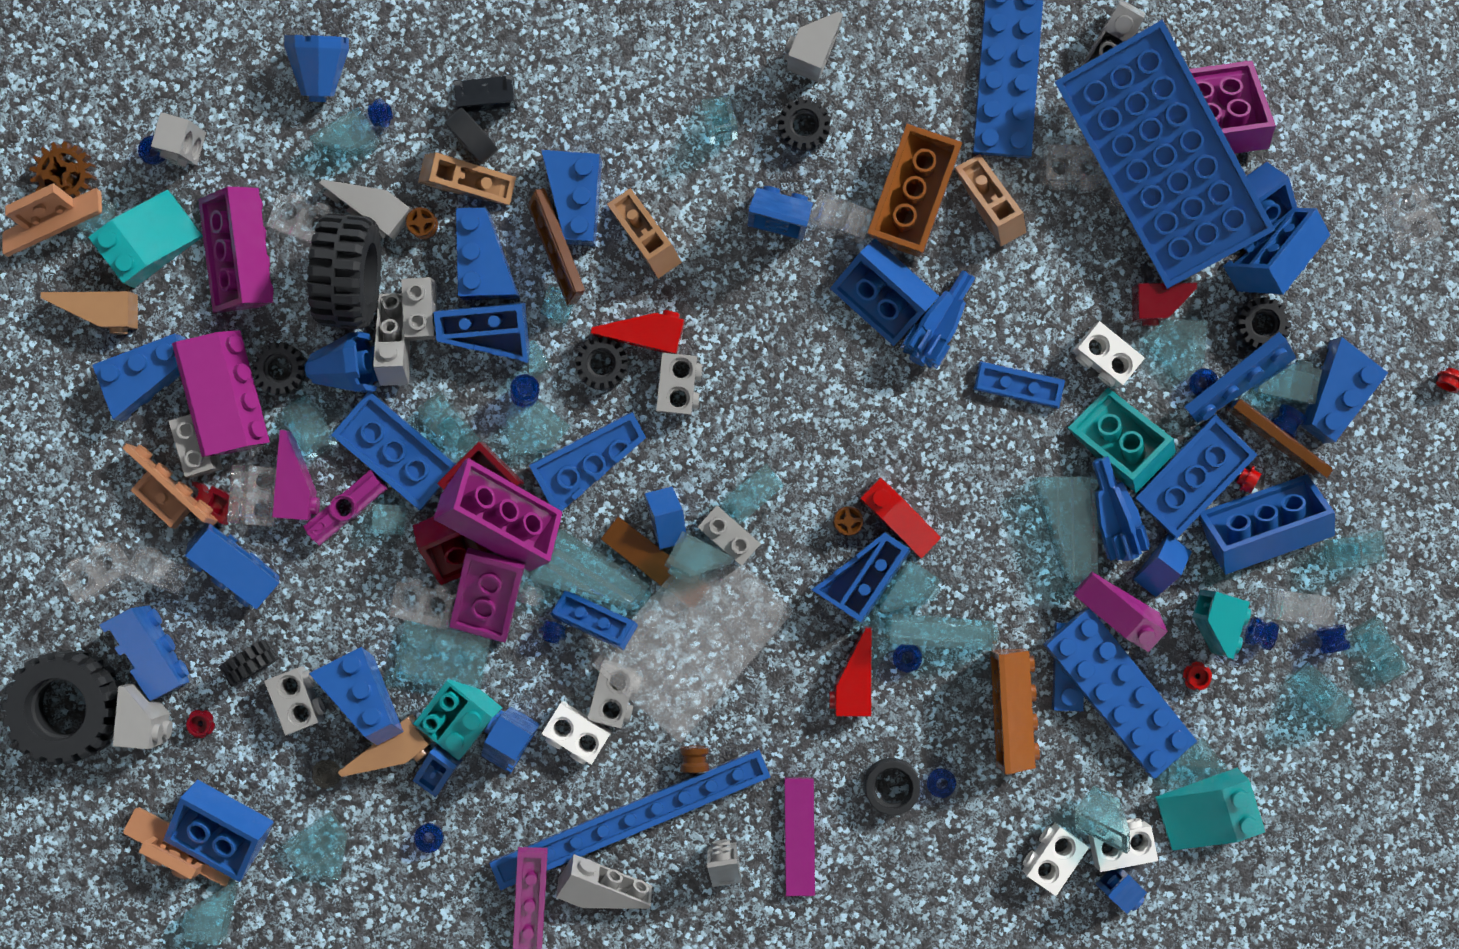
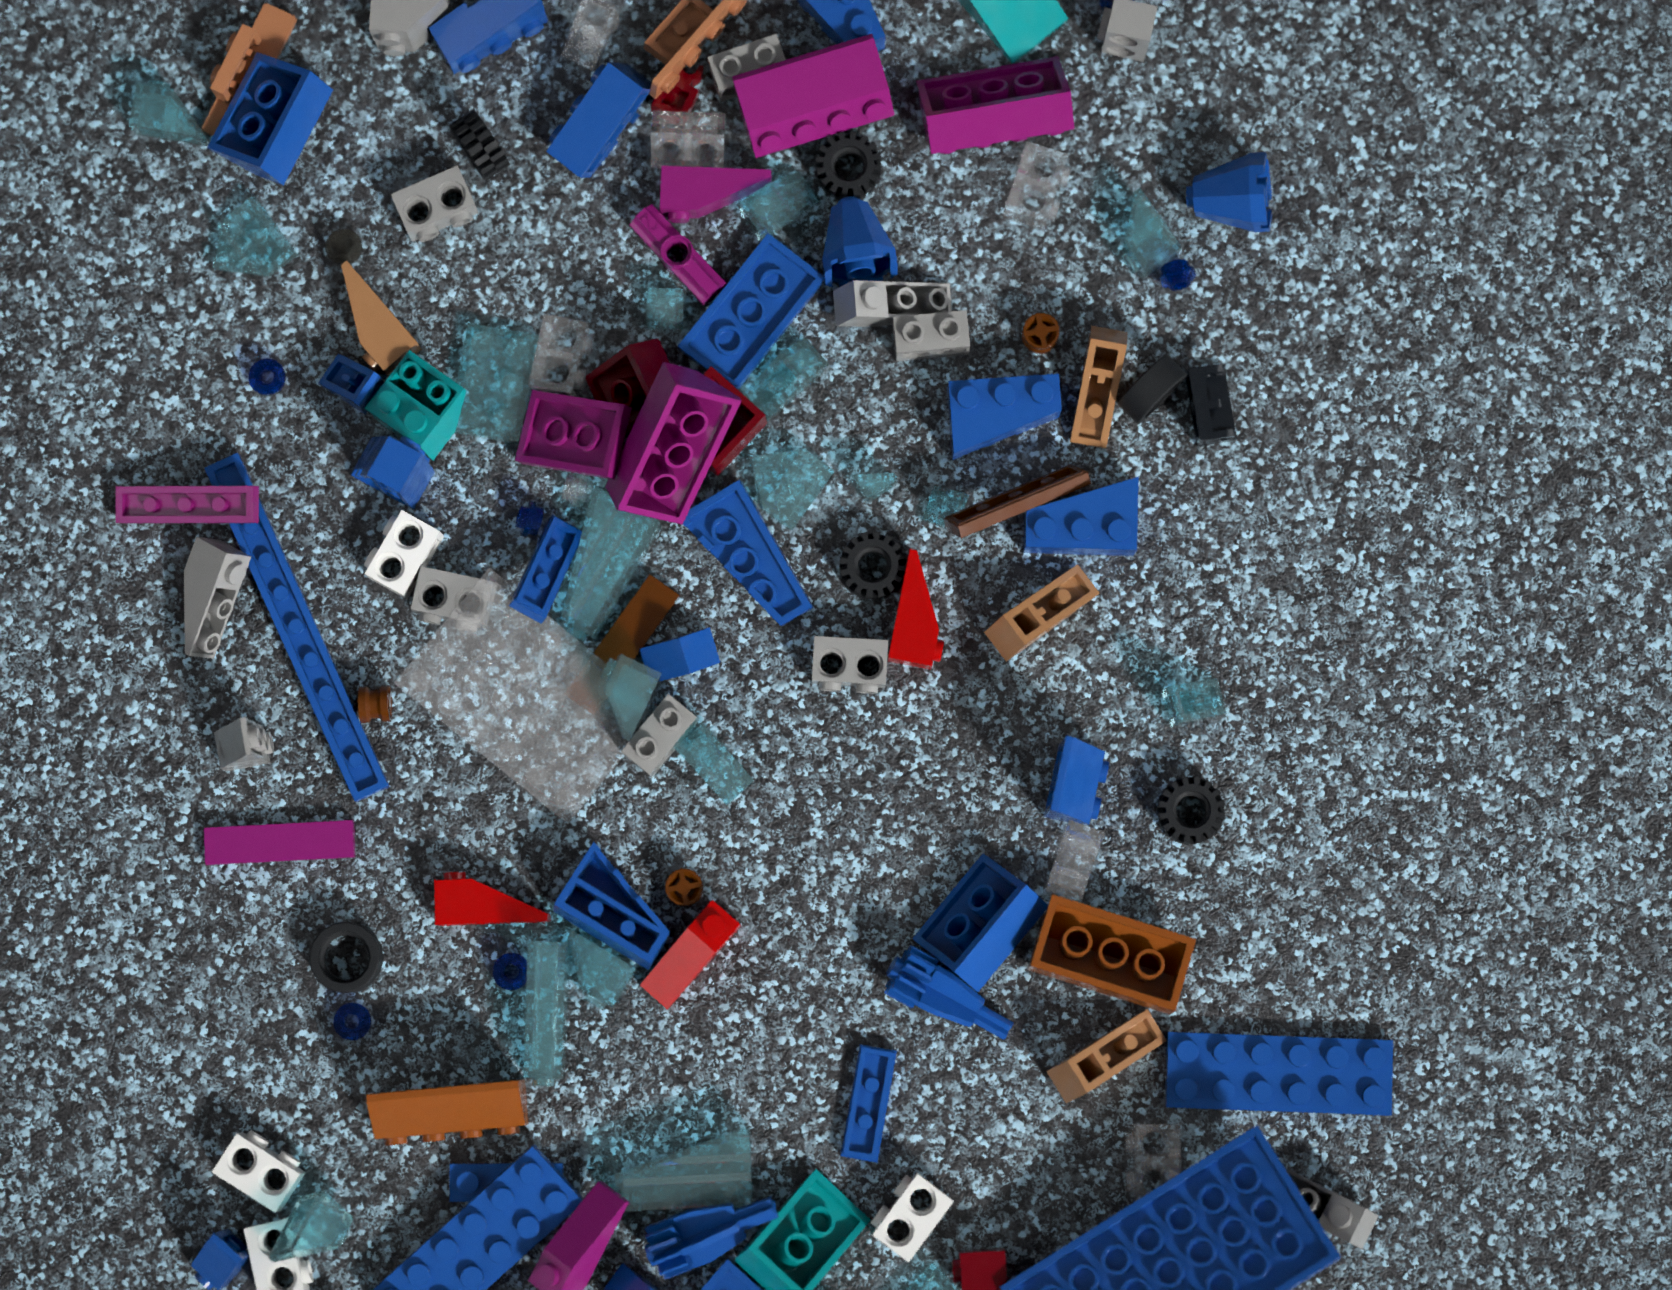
camera: 90 degrees right, 5 degrees down
(193, 726) = (399, 81): dark red plate -> none
(344, 271) = (970, 240): black tyre -> none
(360, 694) = (443, 284): blue wedge -> none
(375, 203) = (1057, 277): light grey slope -> none
(488, 329) = (909, 418): blue wedge -> none
(527, 385) = (839, 472): clear blue wheel -> none
(812, 46) = (1290, 816): light grey slope -> none

